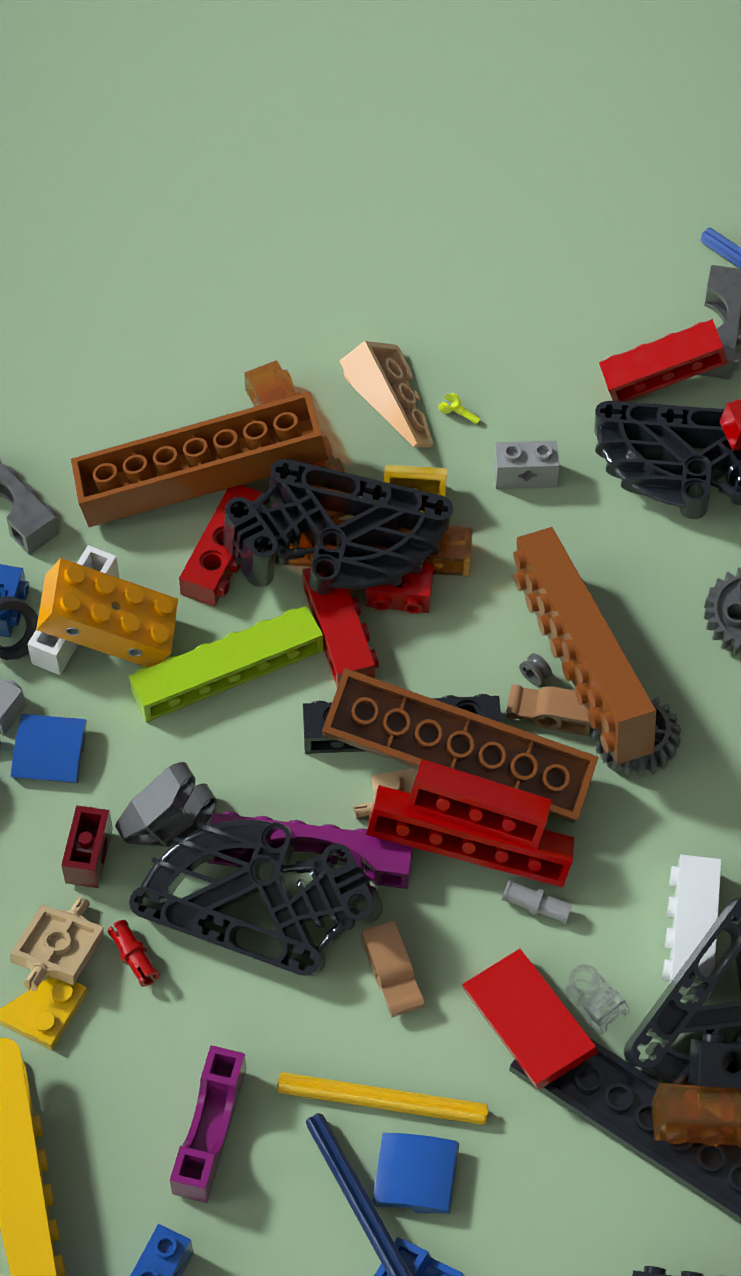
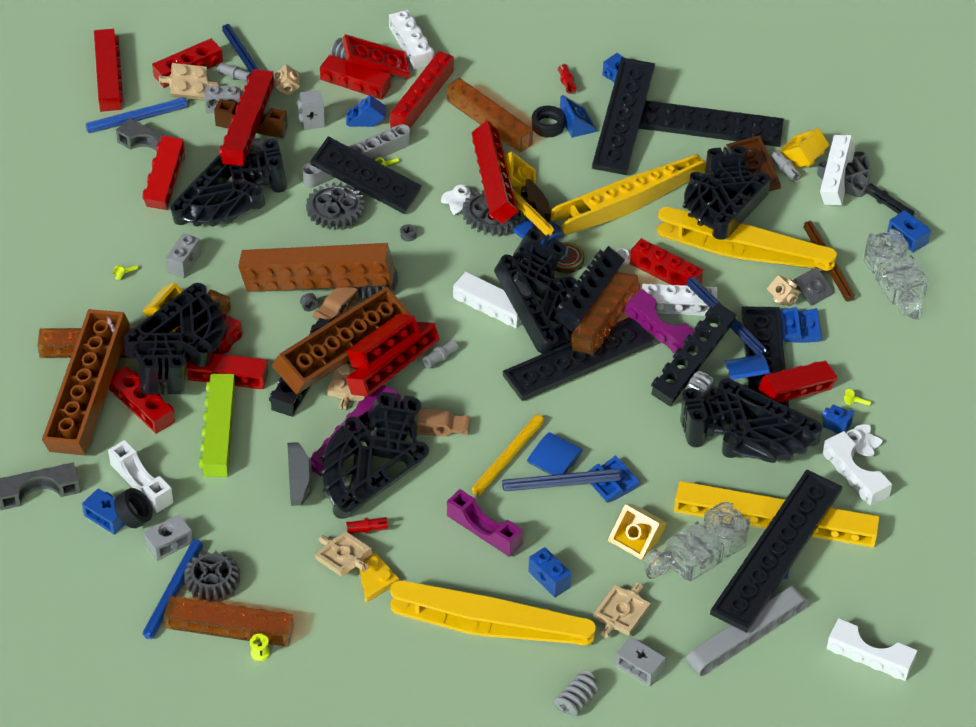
camera: 65 degrees left, 10 degrees down
(48, 748) = (218, 521): blue slope -> none
(80, 610) = (160, 455): light orange piece -> none
(87, 846) = (295, 519): dark red brick -> none
(383, 380) = (82, 293): light nougat wedge -> none
(529, 1019) = (502, 378): red tile -> none
(600, 1003) = (504, 352): clear piece -> none

